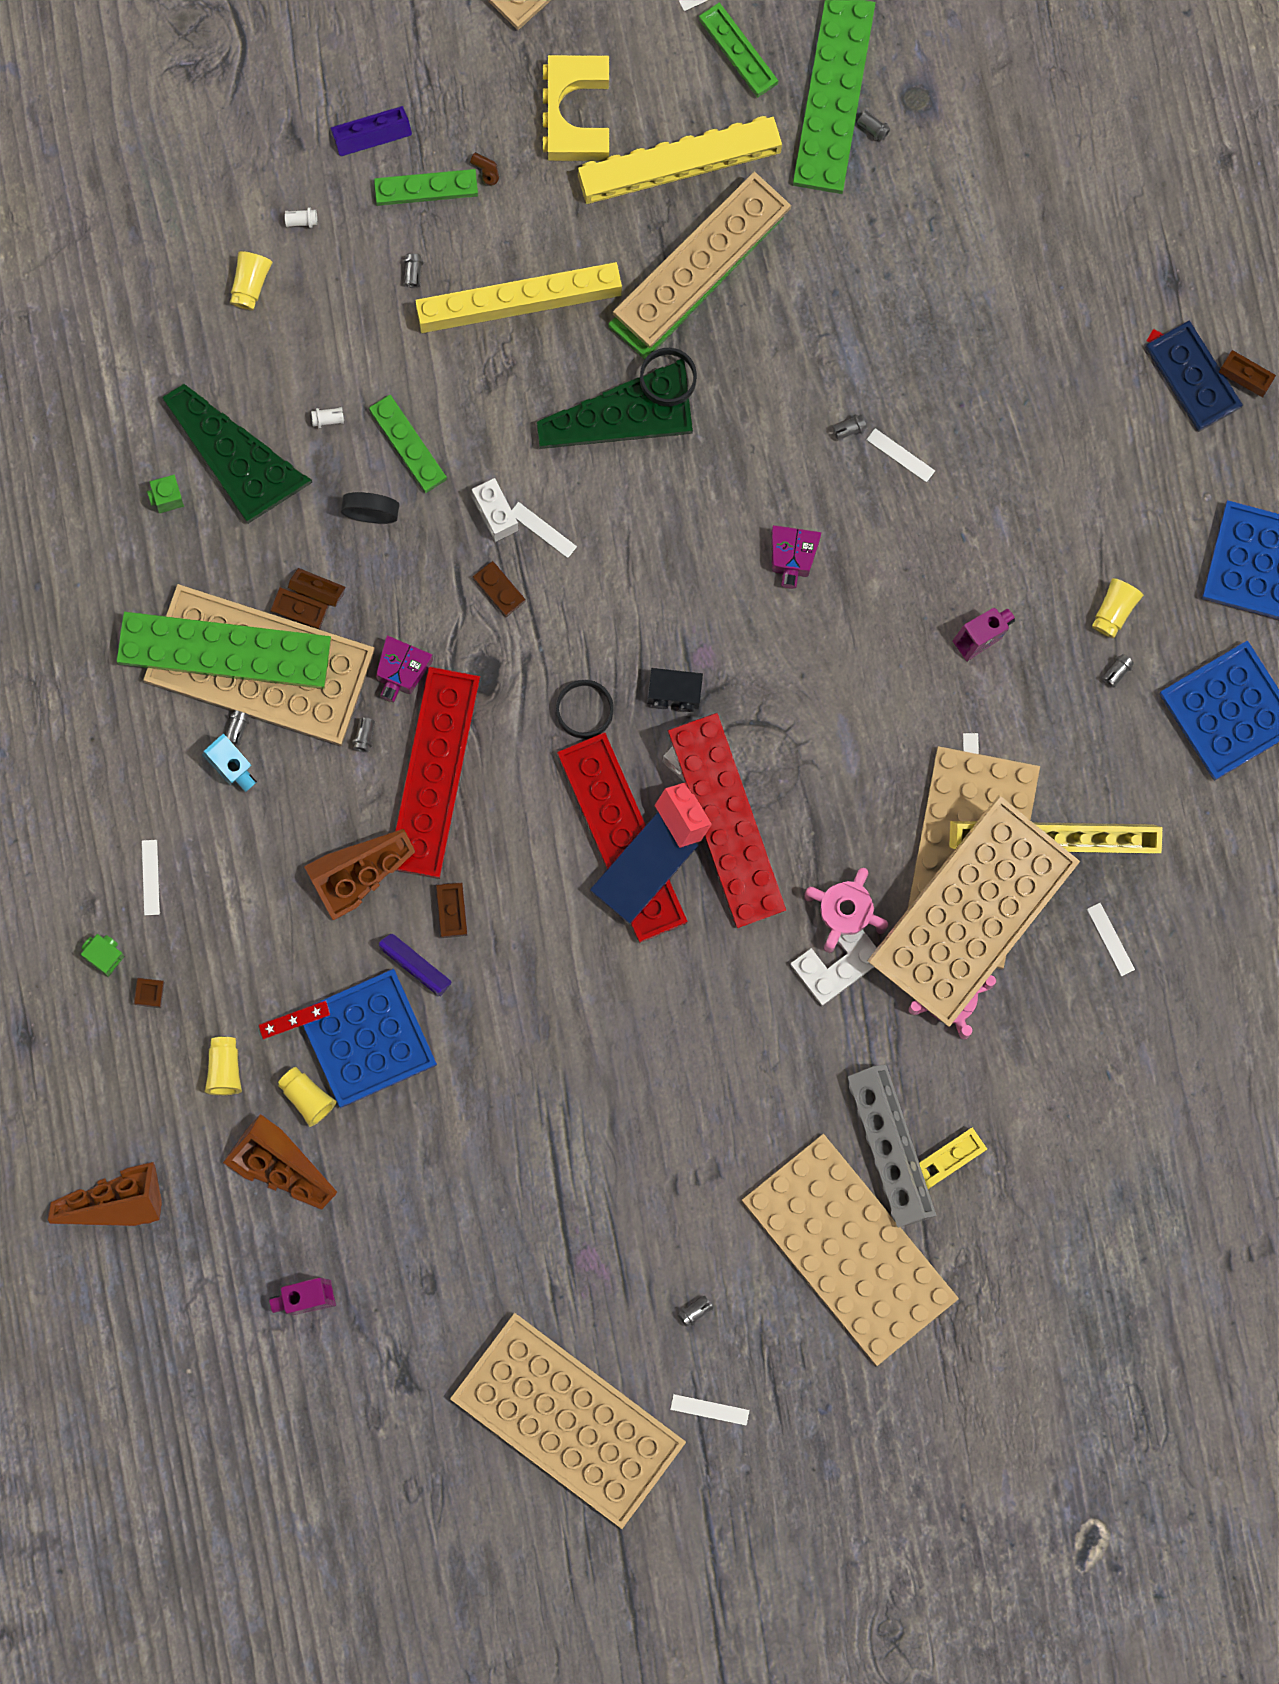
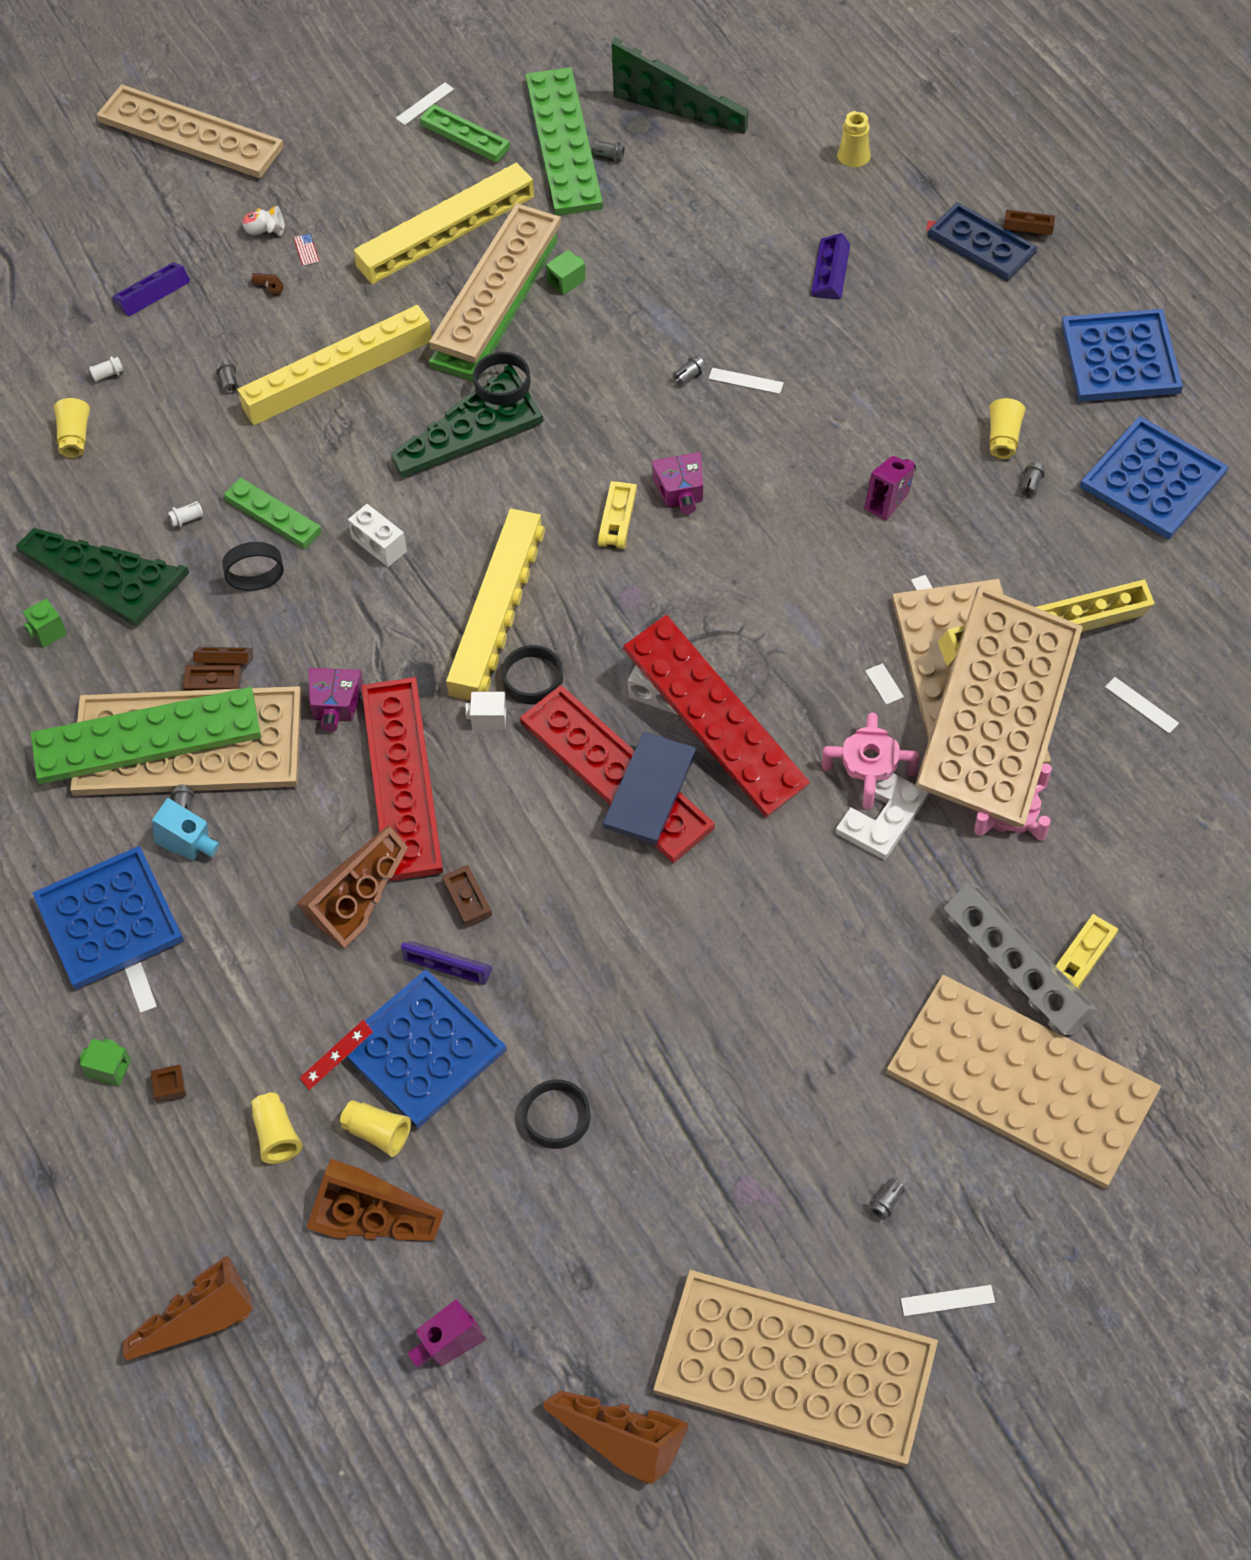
camera: 10 degrees left, 20 degrees down
(141, 817) = (107, 917): none -> blue plate
(363, 736) = (317, 773): flat silver pin -> none
(417, 1429) = (630, 1440): none -> dark orange wedge
(426, 187) = (217, 313): bright green plate -> none
(451, 1111) = (556, 1084): none -> black tyre
(499, 589) = (407, 602): reddish brown plate -> none
(501, 91) = (261, 221): none -> white animal
(531, 734) = (487, 711): none -> white brick
(535, 136) = (306, 249): none -> sticker
(543, 530) = (435, 543): white sticker -> none
(564, 140) = (318, 192): light yellow arch -> none
(576, 624) = (495, 605): none -> light yellow brick
(675, 689) = (613, 626): black brick -> none
(683, 815) = (670, 721): coral brick -> none
(722, 566) = (617, 514): none -> light yellow plate
(776, 265) = (566, 272): none -> bright green brick
(893, 832) = (884, 683): none -> white sticker
(960, 83) = (668, 90): none -> dark green wing
(1034, 352) = (831, 267): none -> dark purple slope
(1117, 214) = (854, 144): none -> light yellow plant

